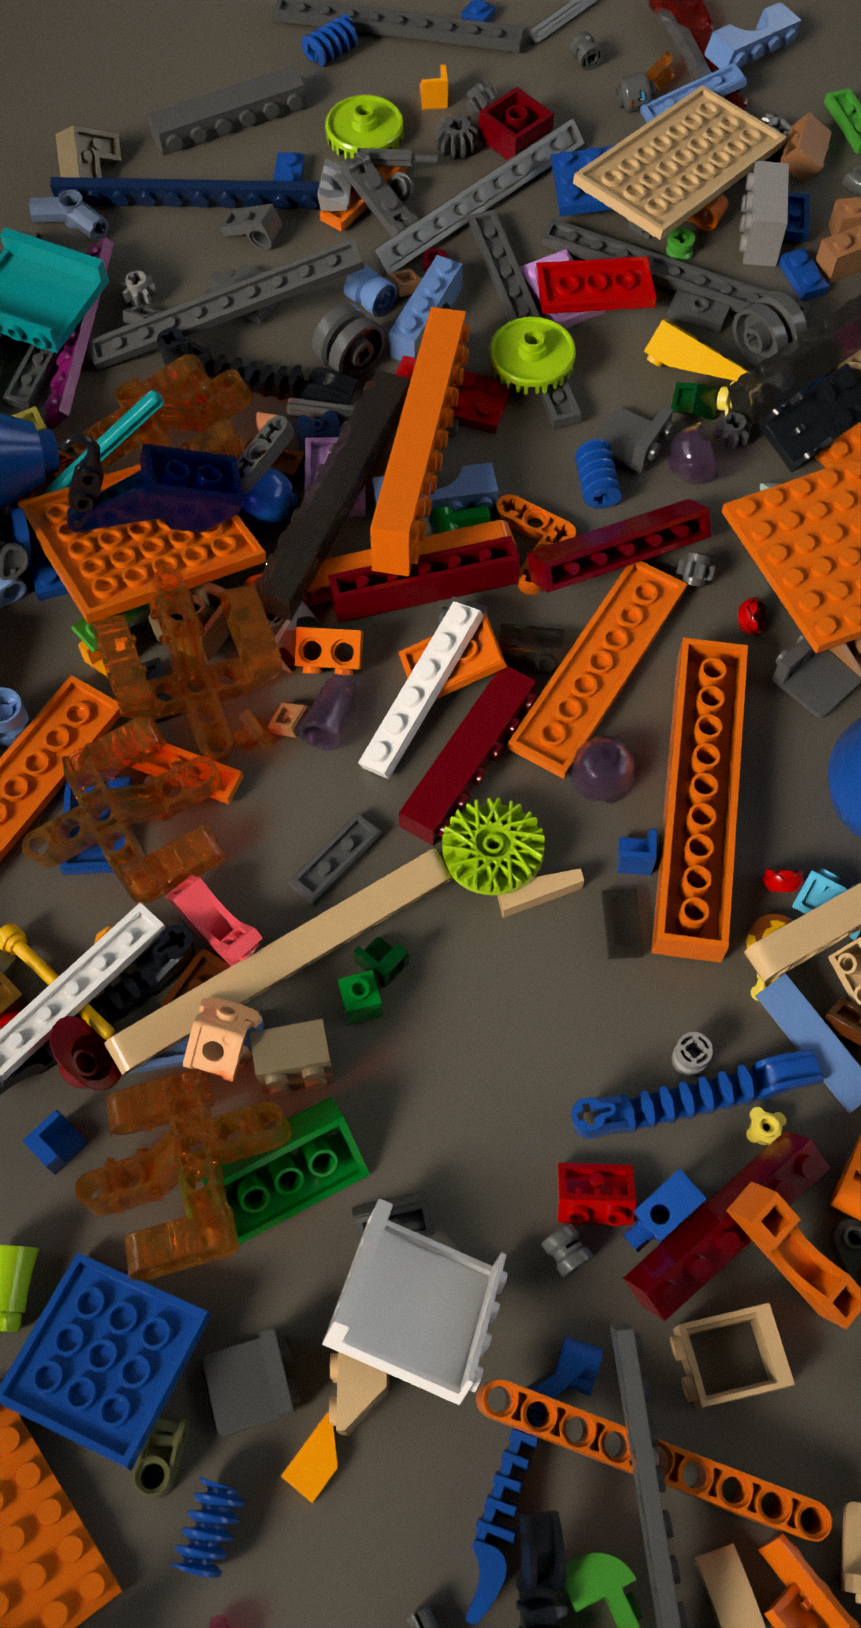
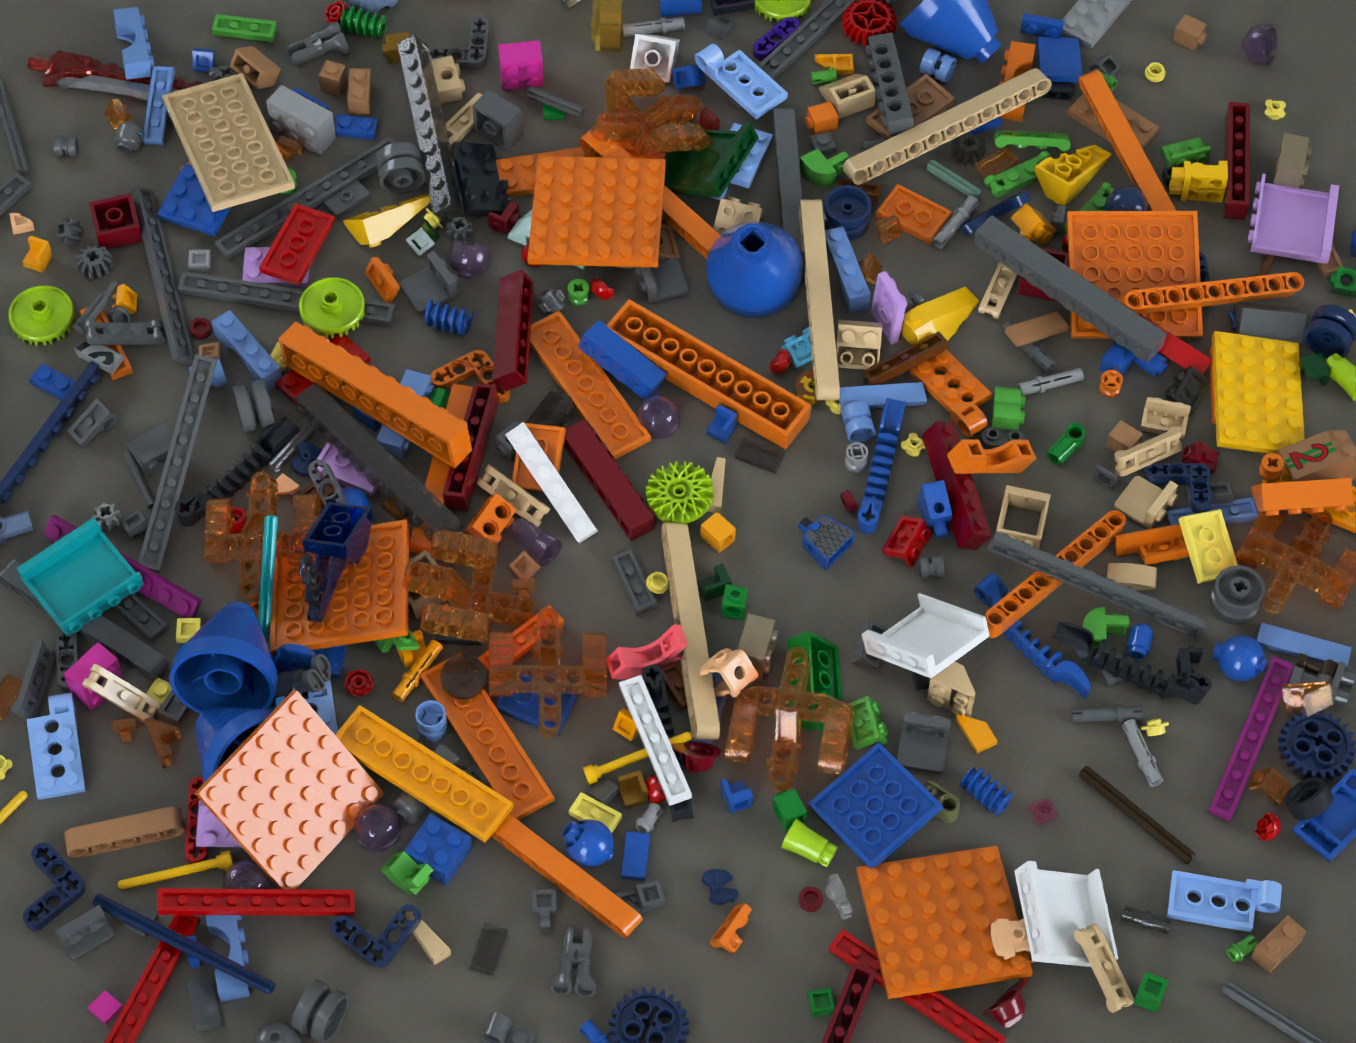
camera: 65 degrees left, 5 degrees down
(33, 610) = (355, 677): none -> red plate
(43, 670) = (411, 679): none -> light orange pin
(57, 1229) = (788, 808): none -> green brick
(82, 719) = (463, 676): none -> clear smoke tile
(251, 1277) = (867, 723): none -> bright green bracket
(344, 884) = (657, 582): none -> light yellow plate
(382, 659) = (513, 494): none -> tan plate
(427, 181) = (125, 298): none -> light orange tile
(462, 925) = (718, 532): none -> light orange panel
(467, 64) = (20, 223): none -> light nougat tile
(523, 222) = (199, 261): none -> light grey tile
(529, 1074) = (825, 539): none -> torso
(612, 1077) = (848, 501): none -> dark red tile
(615, 383) = (382, 279): none -> orange hinge
(653, 683) = (622, 360): none -> blue brick
(724, 227) = (289, 148): none -> clear orange tile
(725, 598) = (575, 297): none -> bright green wheel
(750, 1029) = (858, 422): none -> medium blue wheel
(782, 468) = (506, 220): none -> dark red bracket
(784, 104) = (203, 59): none -> blue tile

